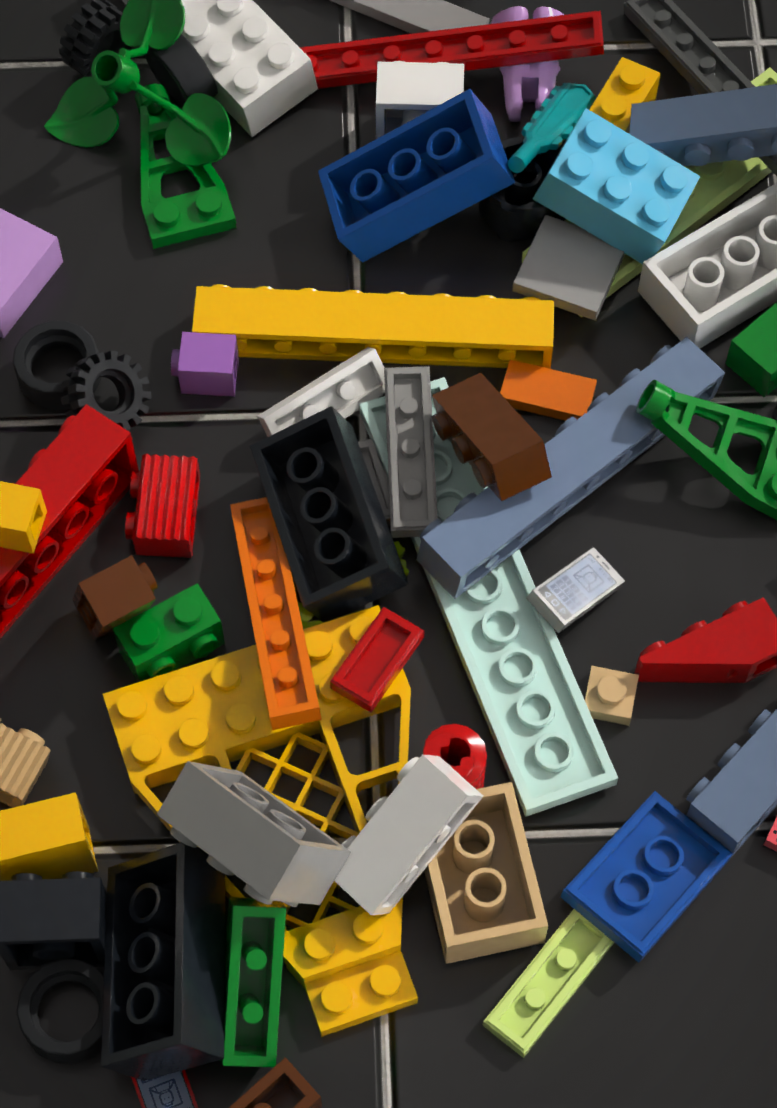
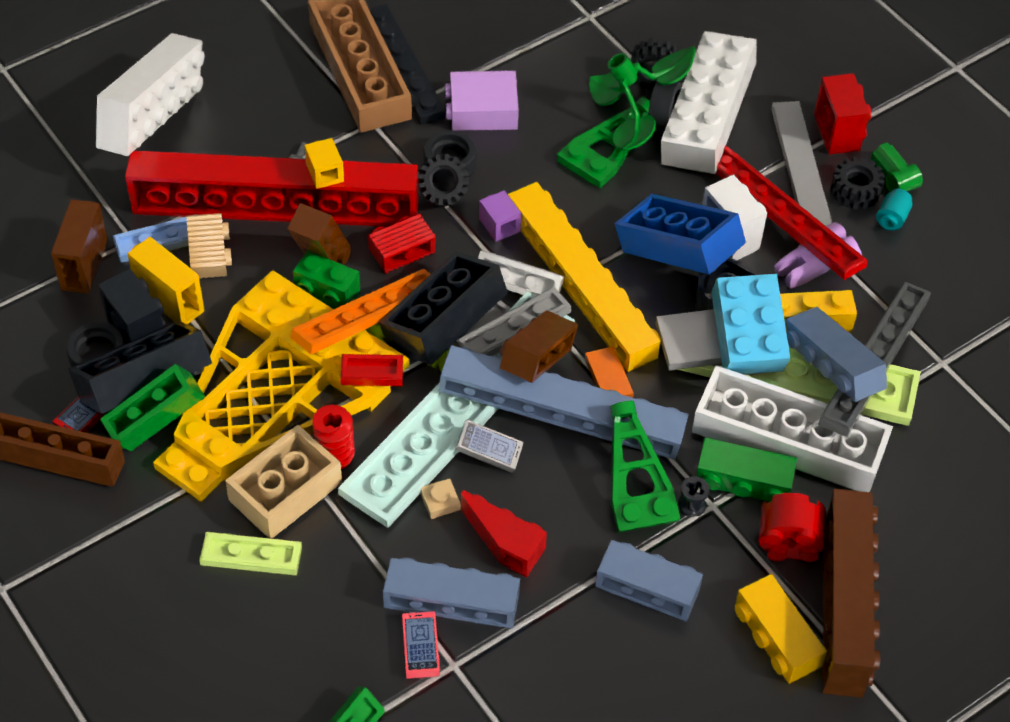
camera: 55 degrees right, 10 degrees down
(252, 835) = (222, 355): light grey brick -> none
(405, 833) = (270, 423): white brick -> none
(552, 123) = (787, 279): teal sword -> none
(646, 876) = (340, 566): blue tile -> none

